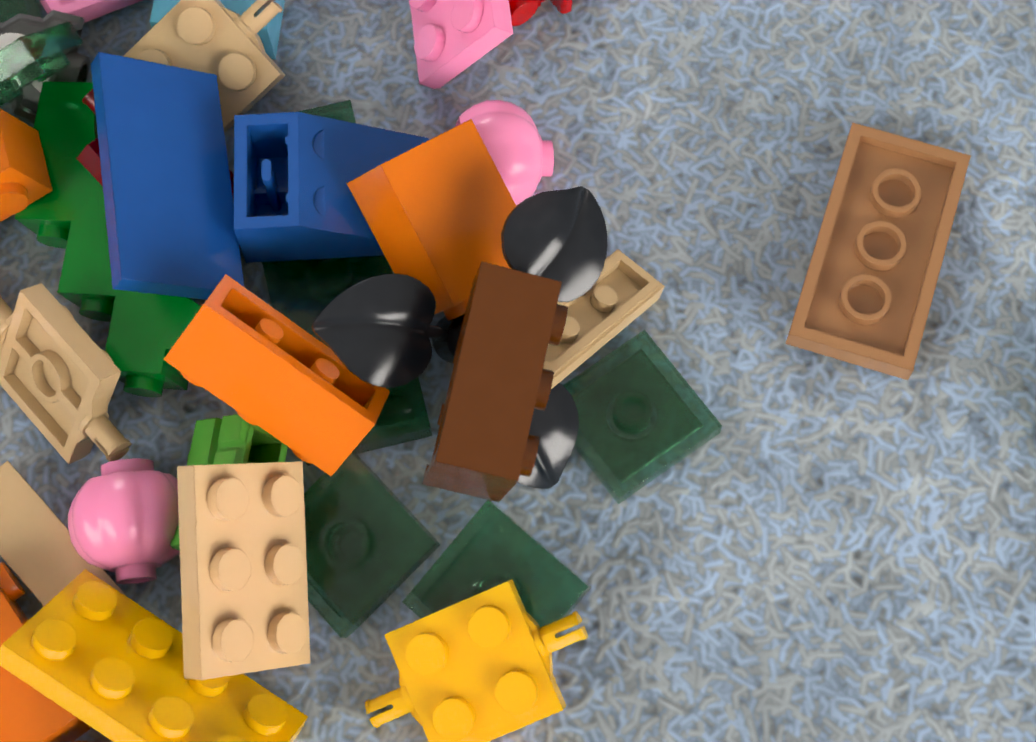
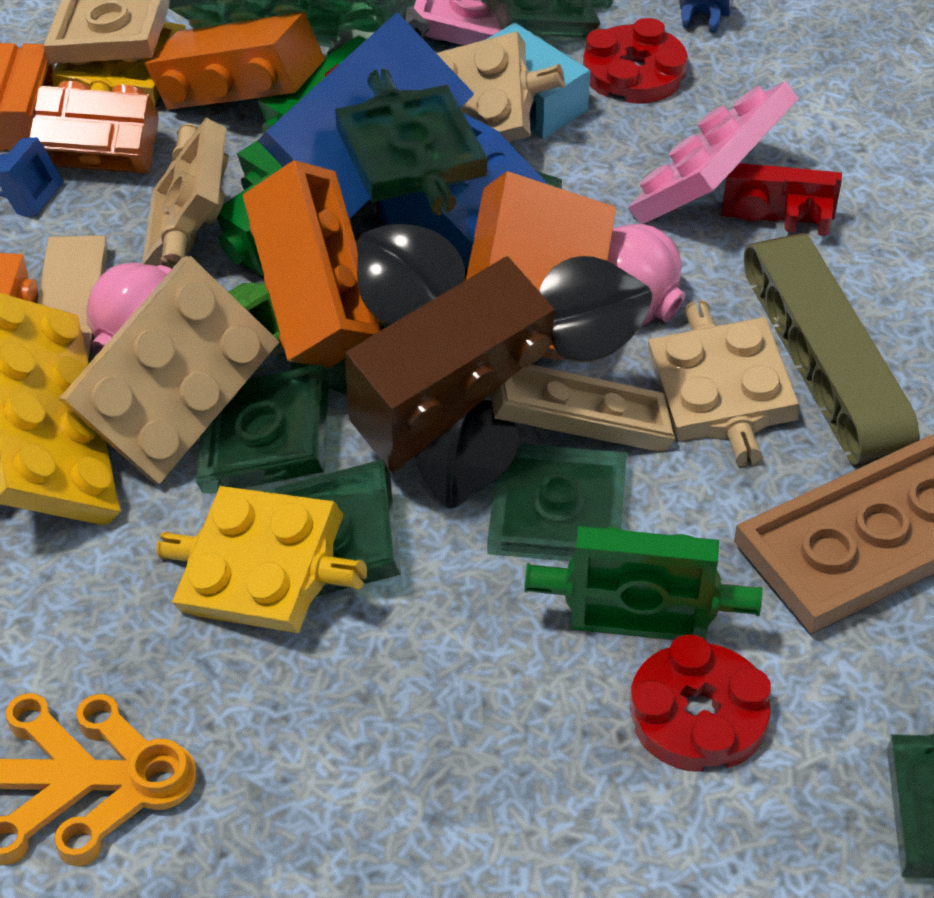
camera: 40 degrees right, 20 degrees down
(252, 189) = (410, 142): none -> clear green plate
(653, 198) = (723, 381): none -> tan plate
(701, 105) = (832, 346): none -> olive beam
(775, 460) = (643, 584): none -> green plate
(913, 479) = (709, 739): none -> red plate

